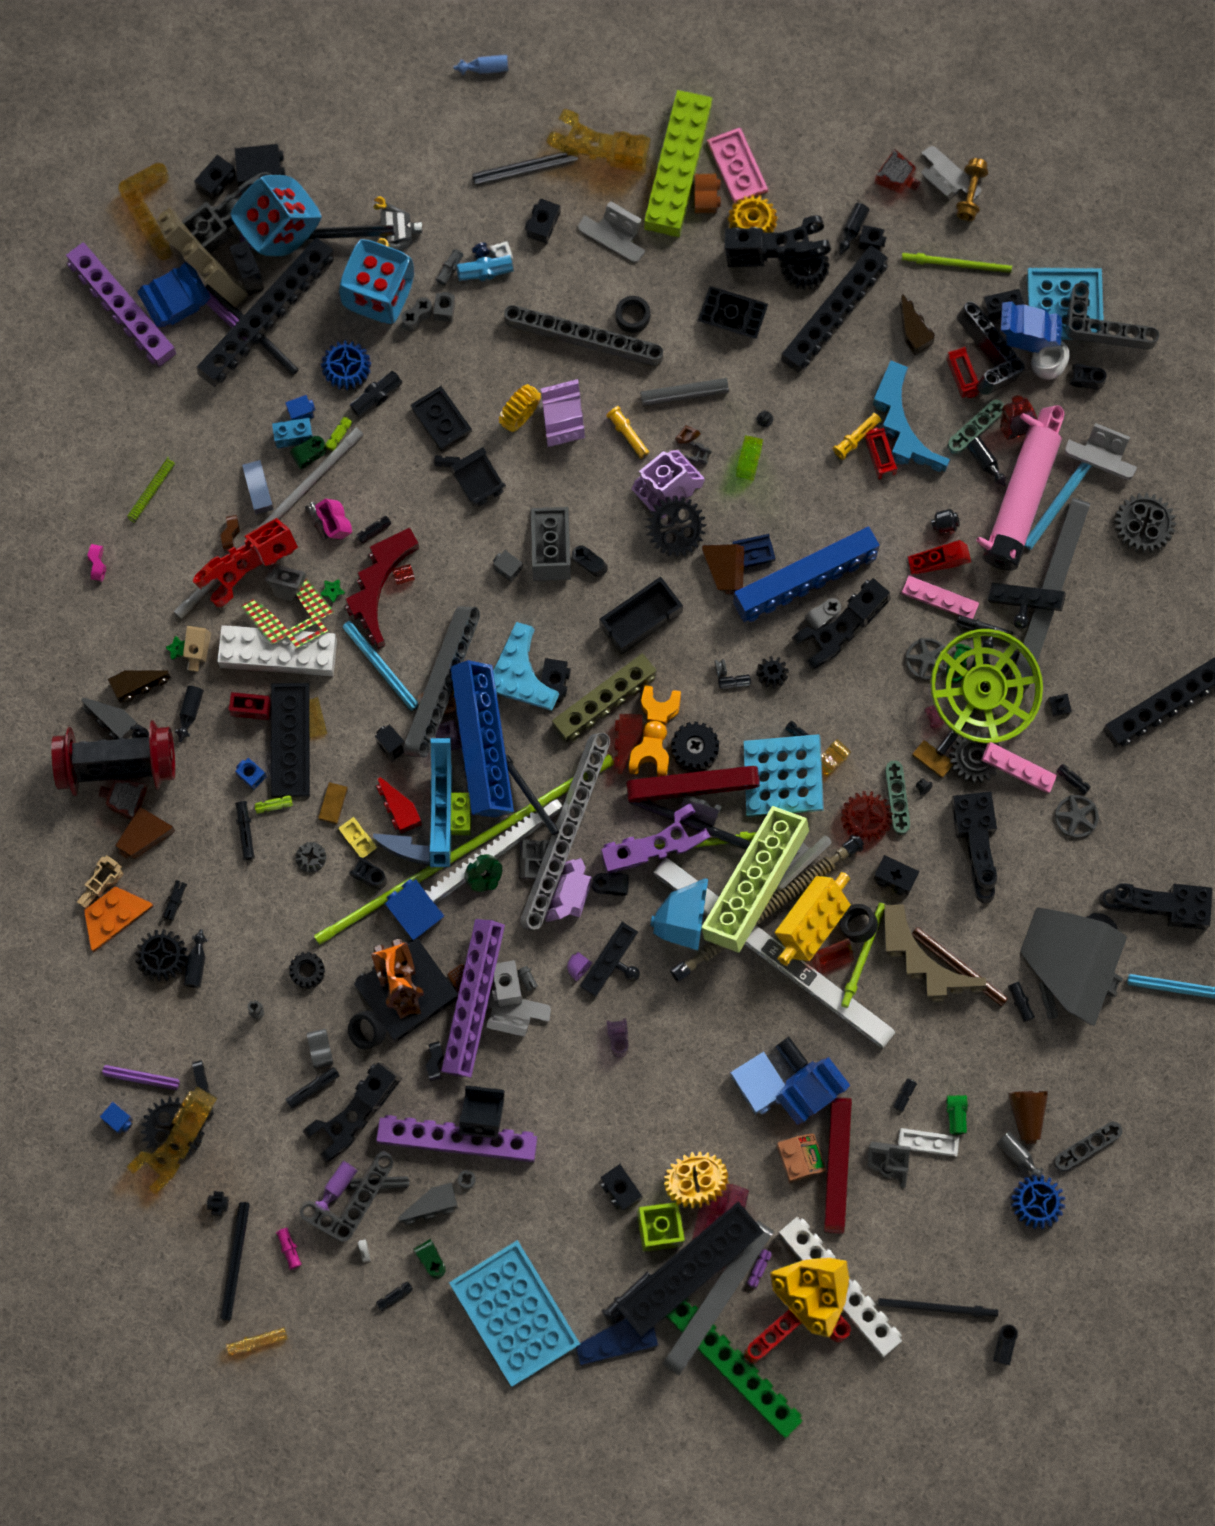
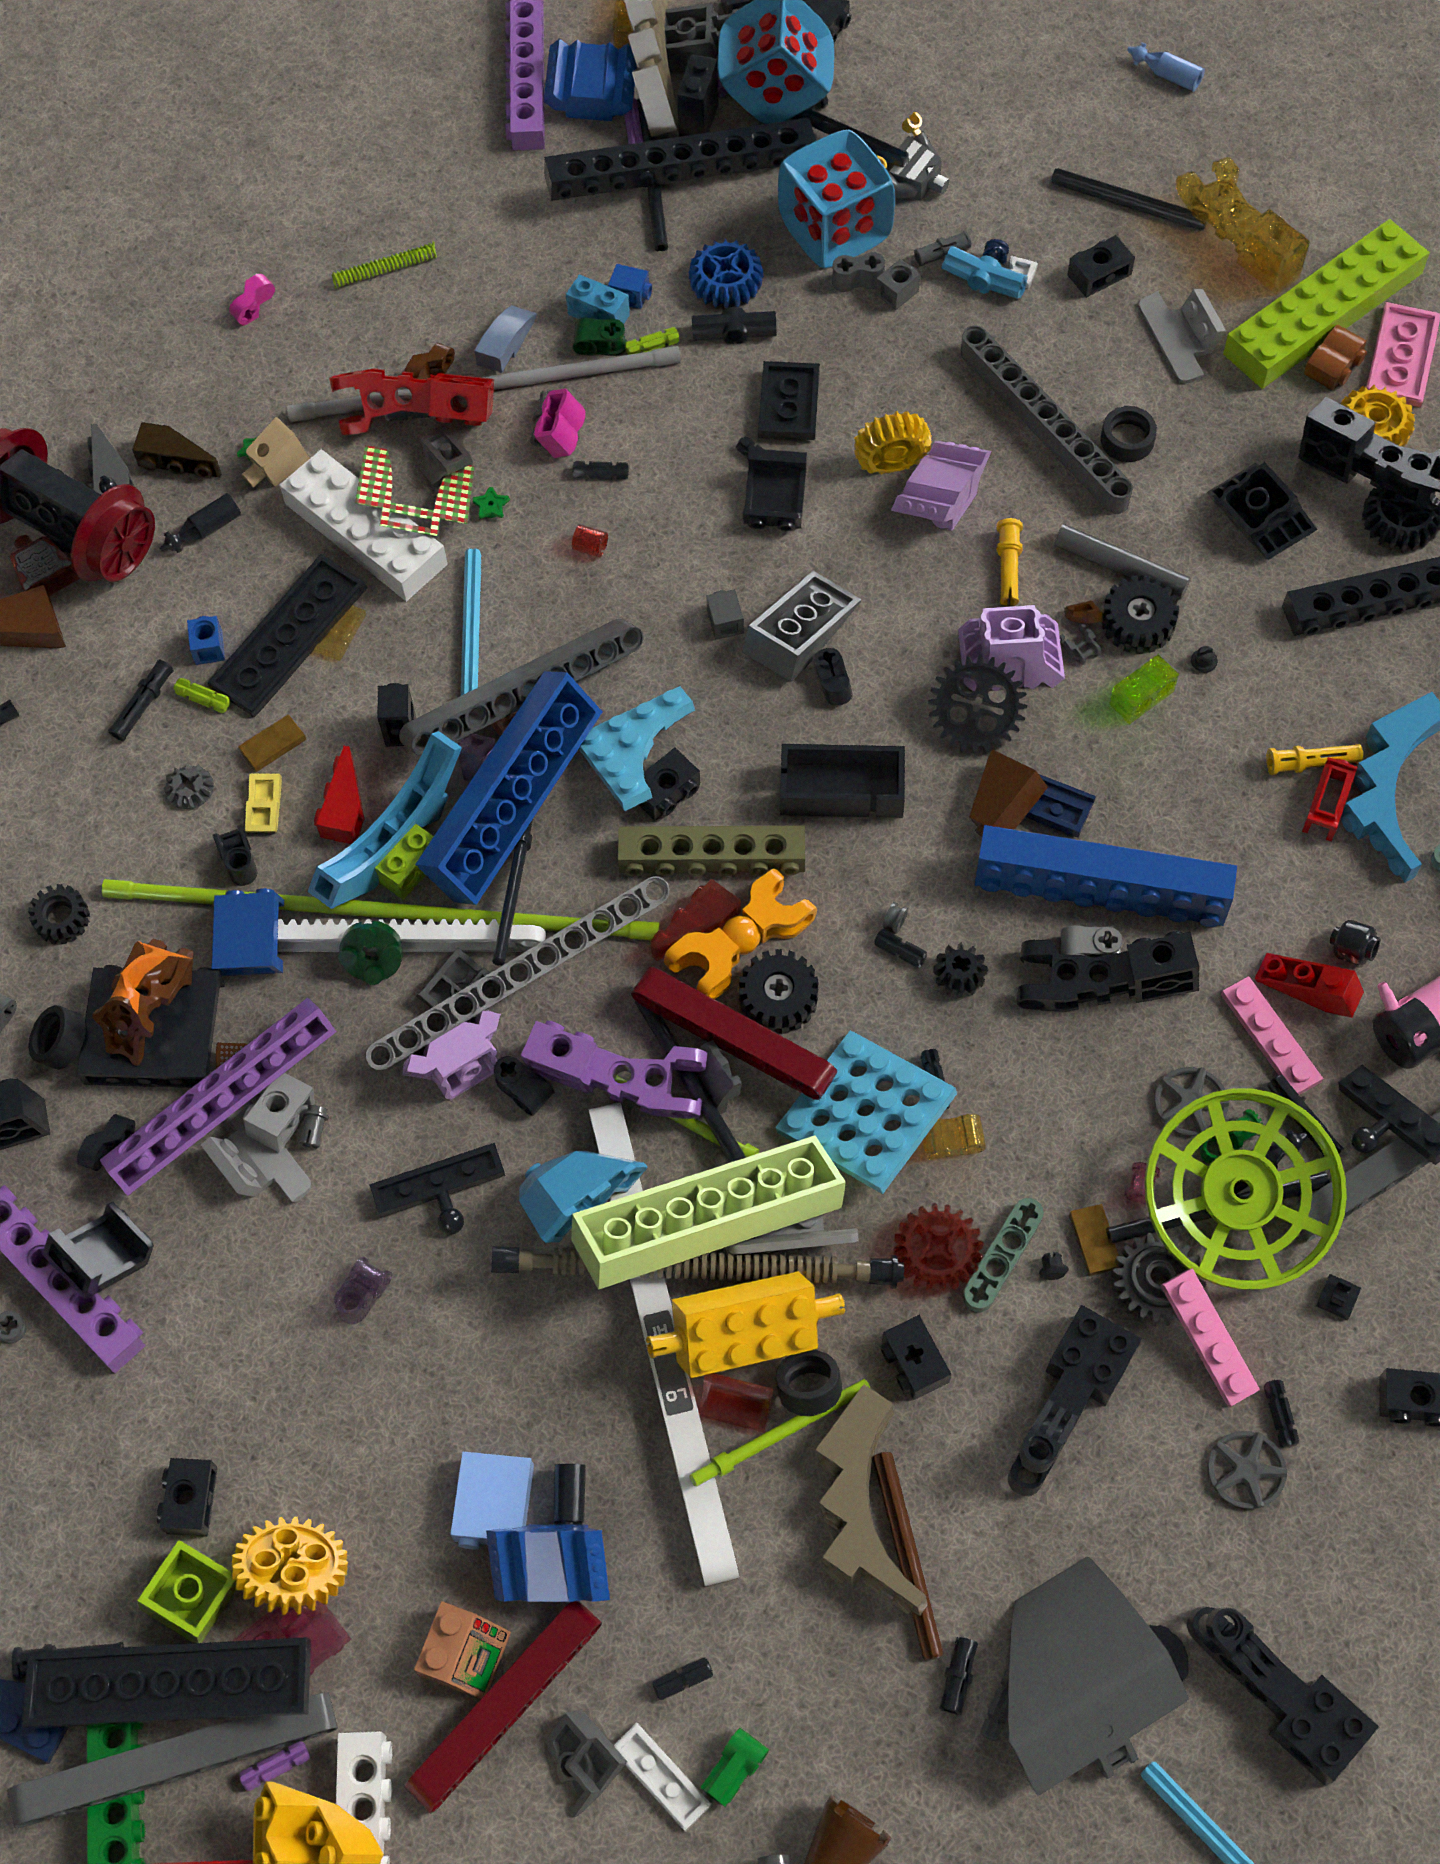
camera: 40 degrees right, 10 degrees down
(249, 706) = (272, 560): dark red brick -> none
(387, 556) = (548, 521): dark red arch -> none
(403, 847) = (302, 846): sand blue slope -> none
(578, 966) = (391, 1159): medium lavender piece -> none
(709, 425) = (1145, 631): none -> black bush

